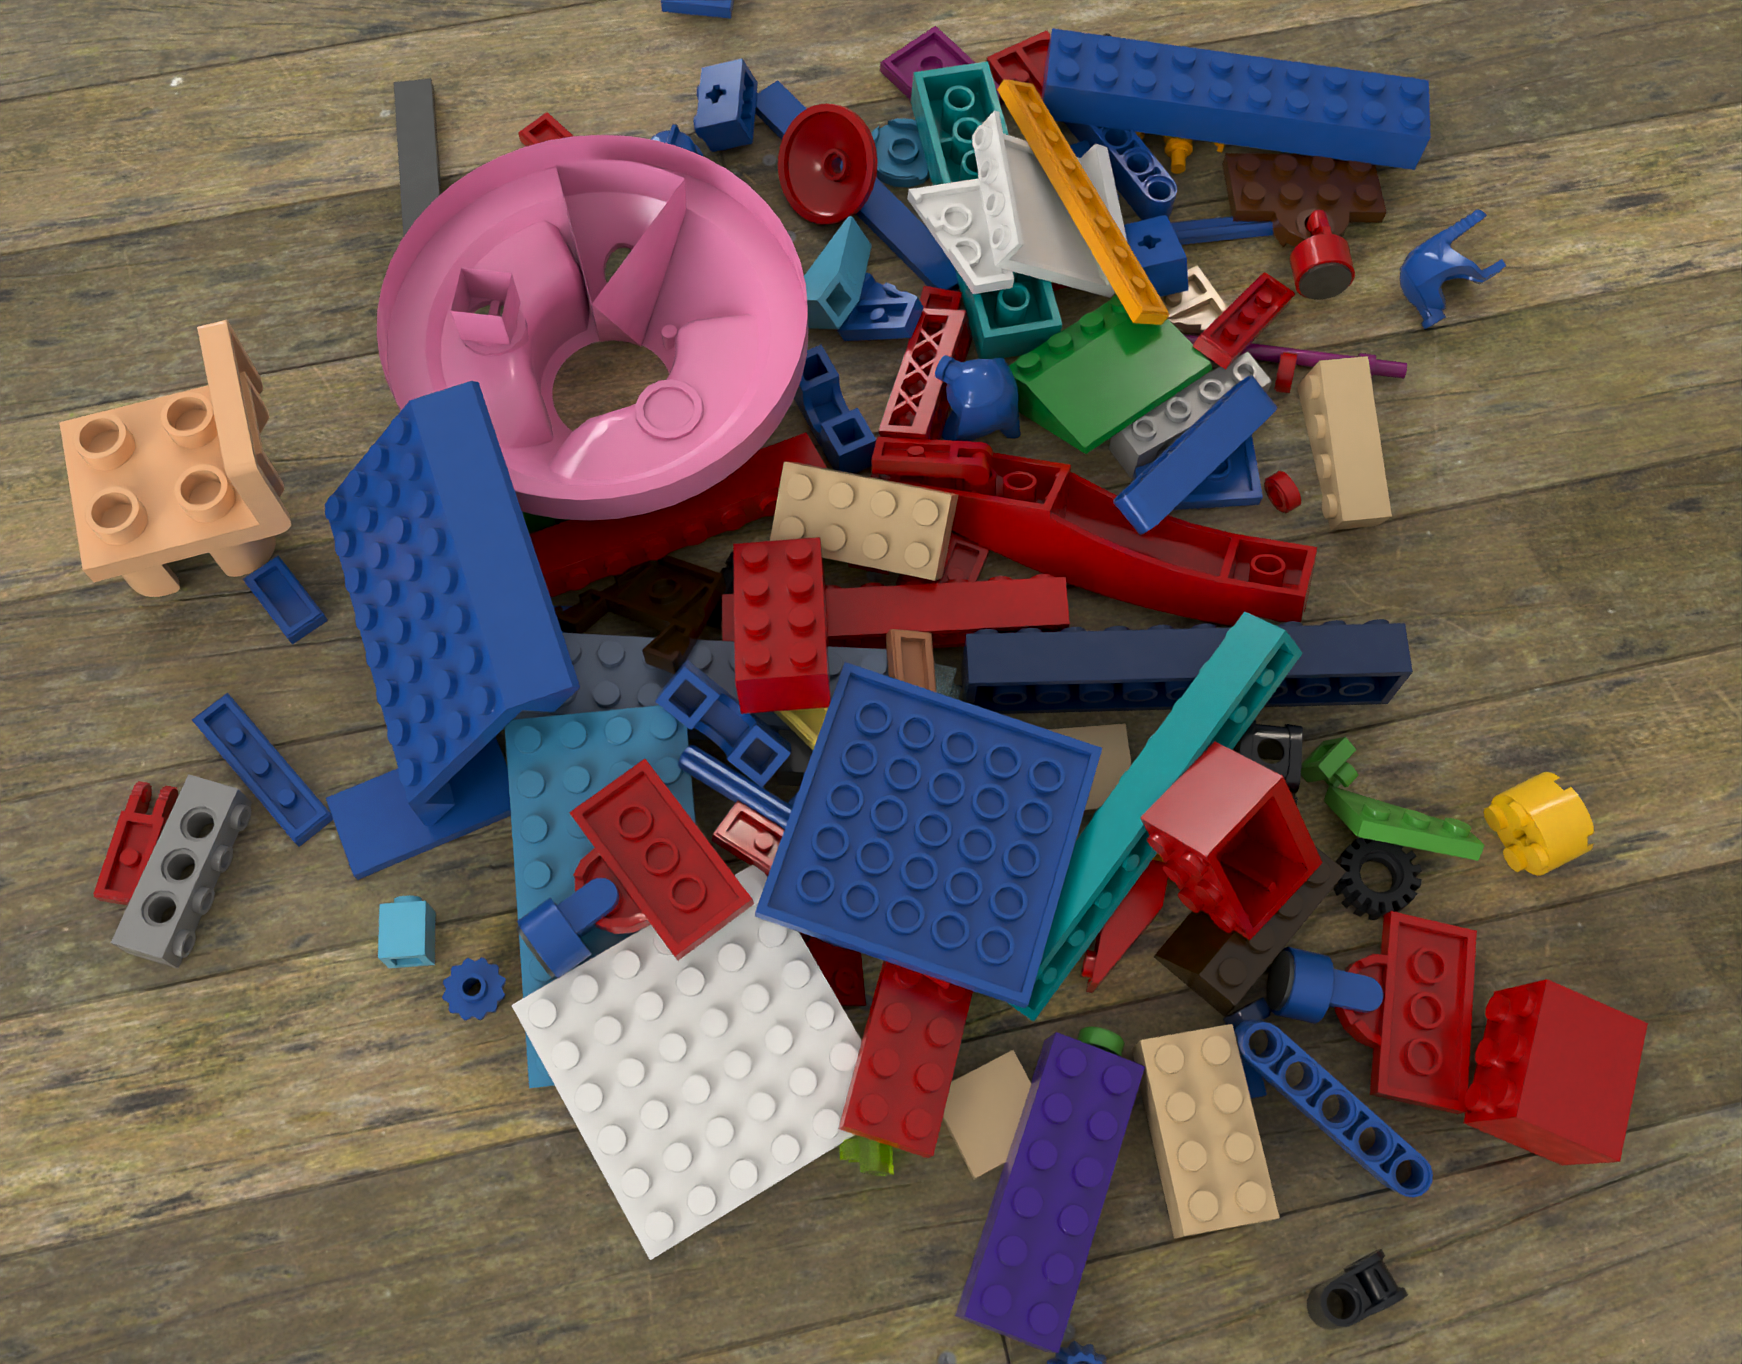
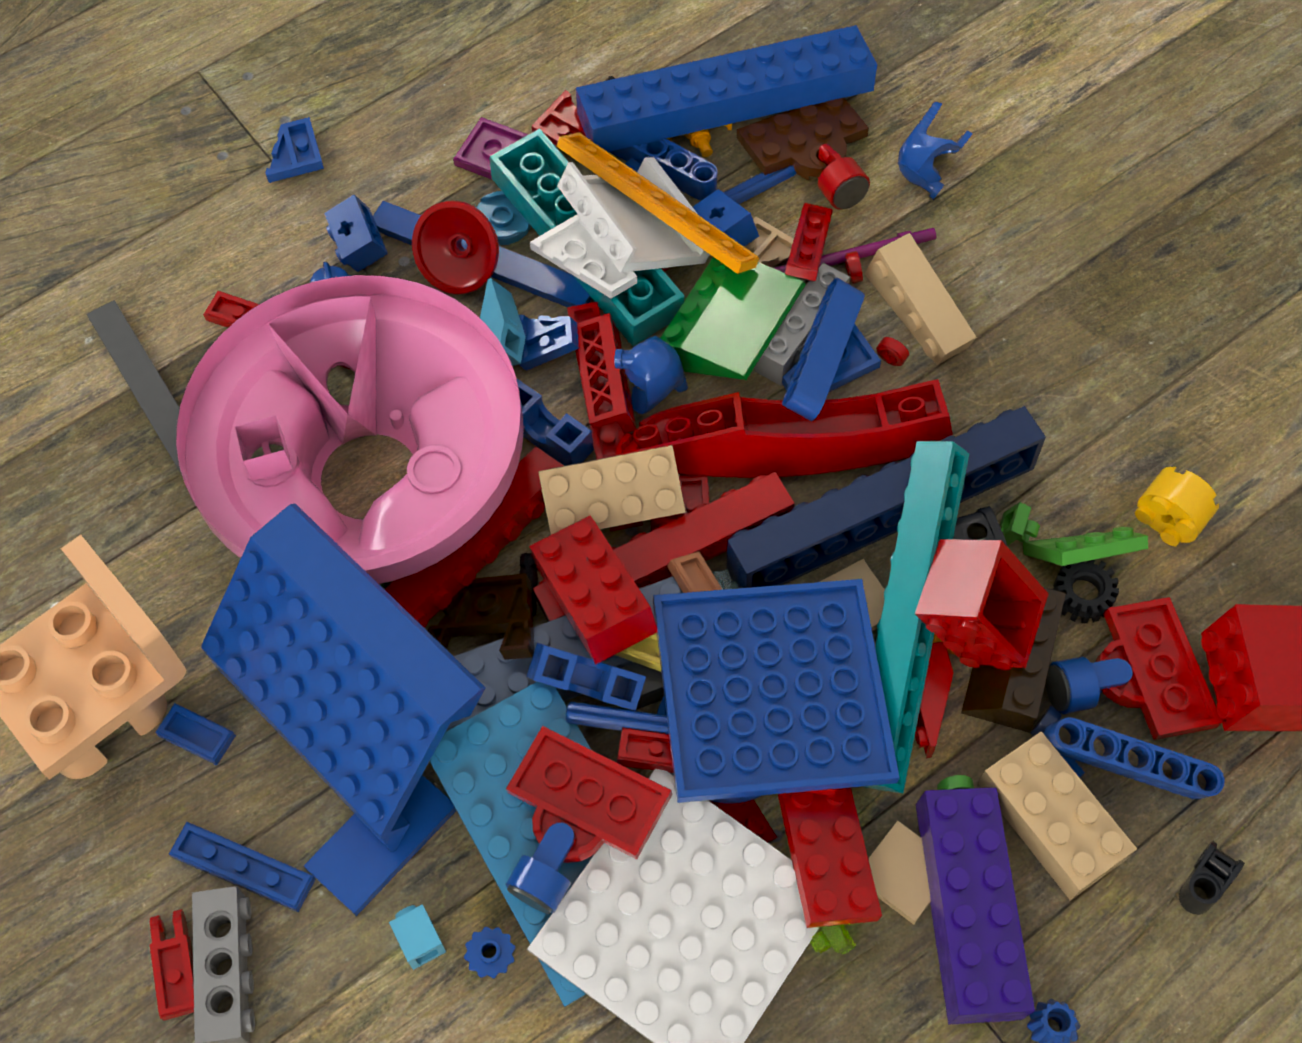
camera: 20 degrees left, 5 degrees down
(933, 459) = (640, 427): red plate -> none

